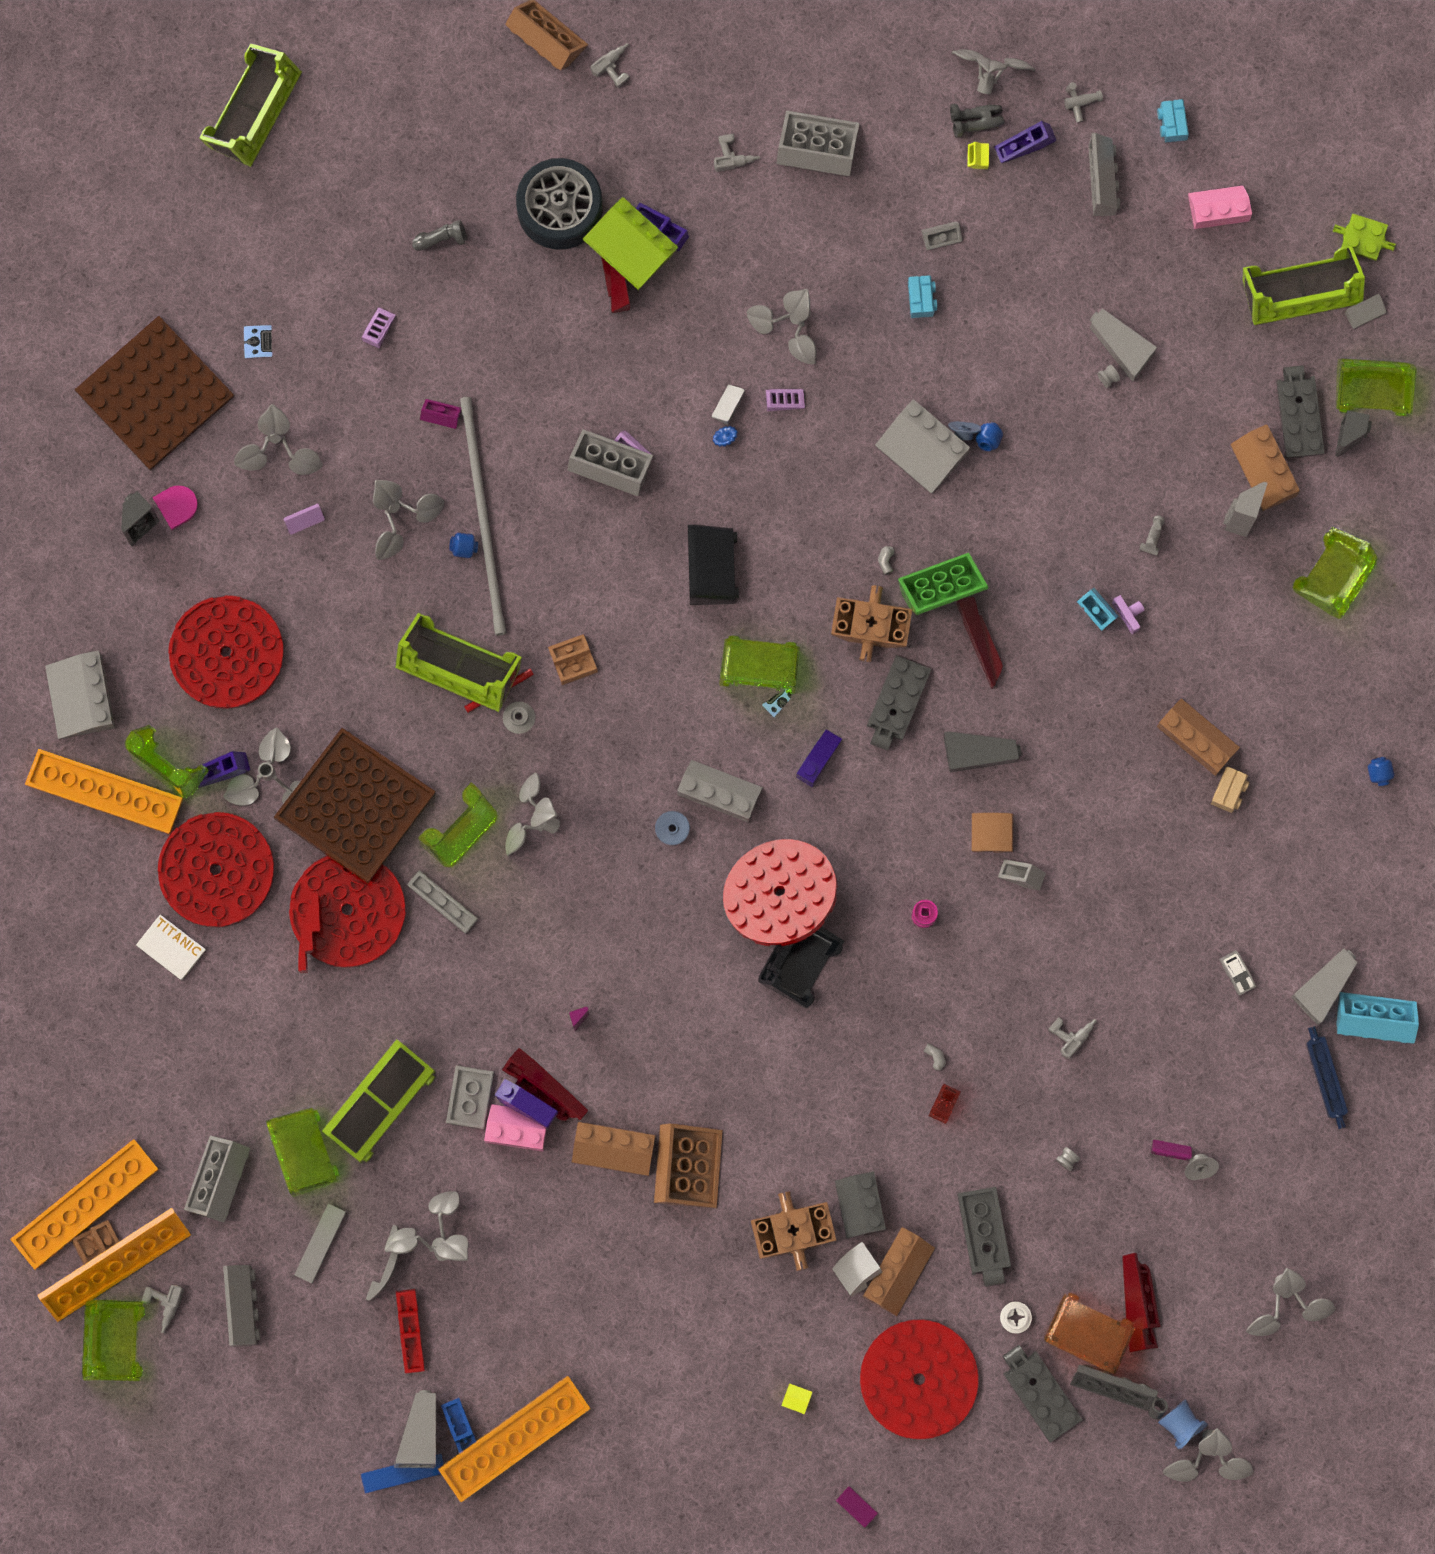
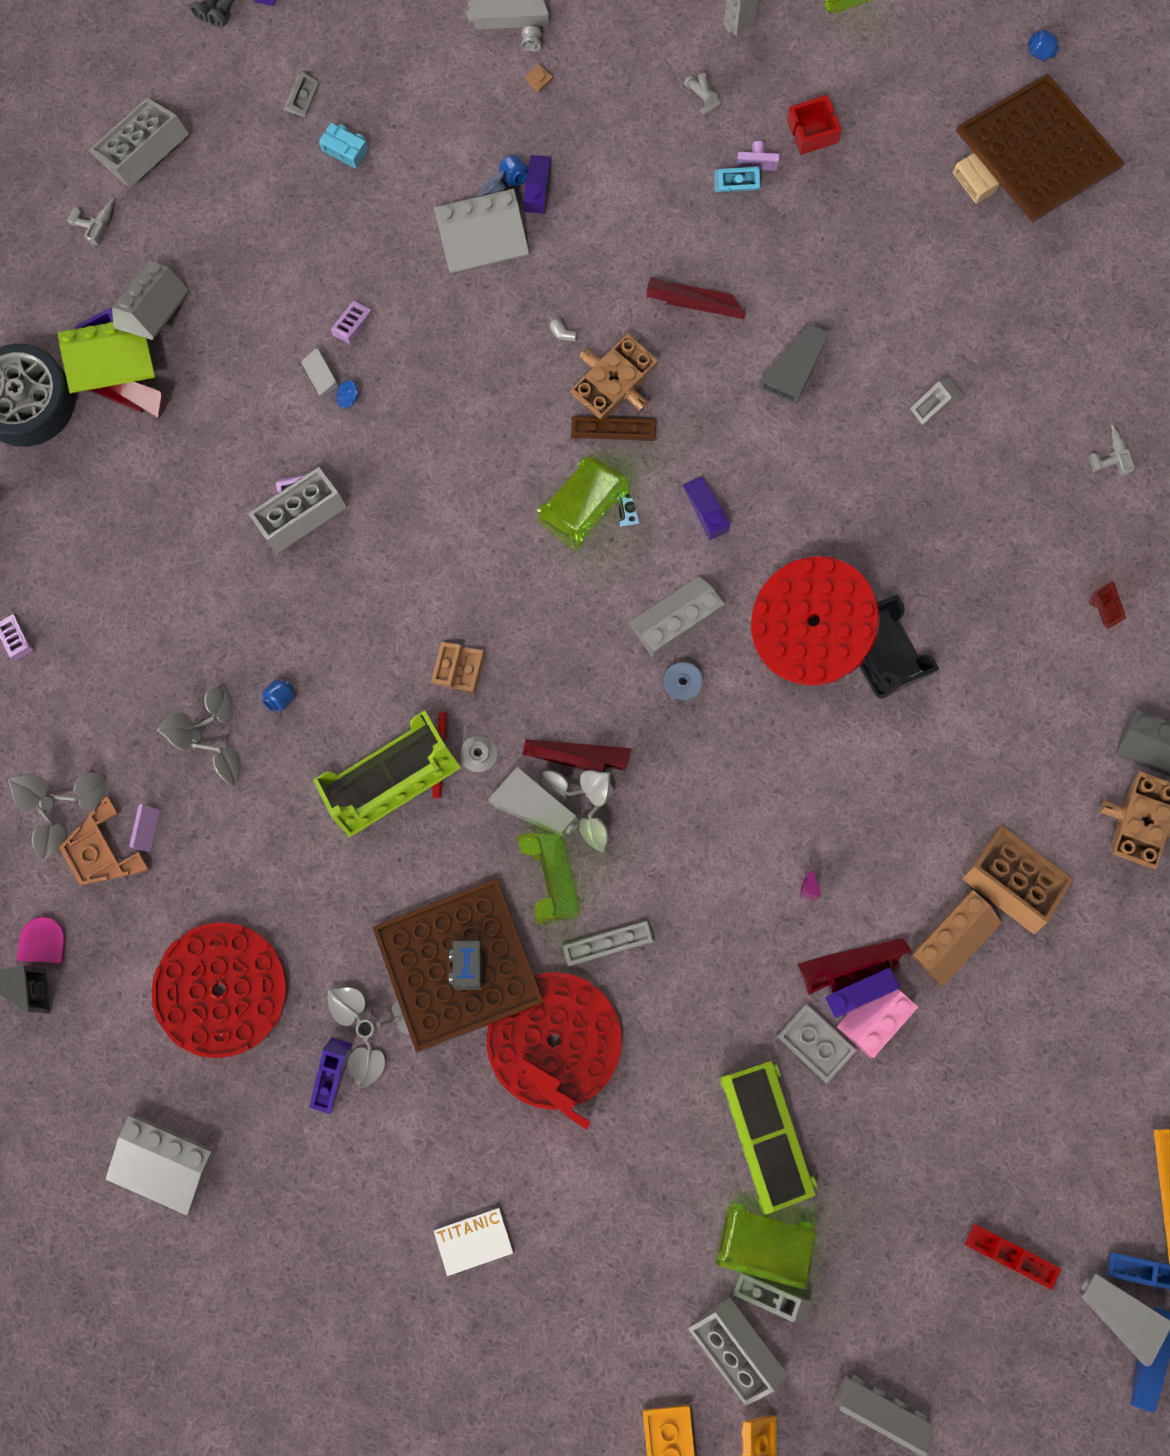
camera: 50 degrees left, 0 degrees up
(104, 791) = (271, 1205): light orange plate -> none
(141, 749) = (255, 1138): clear neon green windscreen -> none
(212, 841) = (392, 1150): red plate -> none
(260, 495) = (91, 854): none -> nougat wing
(269, 1180) = (772, 1298): none -> light grey slope
(320, 1243) = (868, 1289): light grey tile -> none
(357, 810) = (467, 965): none -> dark grey brick
(376, 1288) = (950, 1260): light grey slope -> none
(440, 413) = (137, 634): magenta slope -> none
(453, 1248) = (970, 1162): light grey plant -> none
(498, 619) = (157, 610): light grey piece -> none
(507, 778) = (530, 802): none -> light grey slope
(566, 790) = (578, 755): none -> dark red wedge
(693, 245) = (149, 301): none -> light grey slope
(711, 565) = (459, 482): black windscreen -> none
(798, 306) = (278, 241): light grey plant -> none
(834, 649) = (613, 428): none -> reddish brown tile
(899, 693) = (694, 397): dark grey hinge -> none
(924, 913) = (918, 507): dark pink wheel -> none
(938, 1056) = (1056, 583): light grey arm -> none
(941, 584) = (624, 292): bright green slope -> none
(978, 155) = (253, 17): neon yellow piece -> none
(992, 460) = (537, 184): none -> dark purple slope
(992, 832) = (879, 401): medium nougat slope -> none
(1081, 404) = (538, 78): none -> medium nougat plate
(1184, 637) = (810, 124): none -> red piece
(1198, 737) = (911, 174): medium nougat slope -> none
(1237, 972) = (1147, 276): slope -> none
(1287, 822) = (1040, 147): none -> reddish brown plate

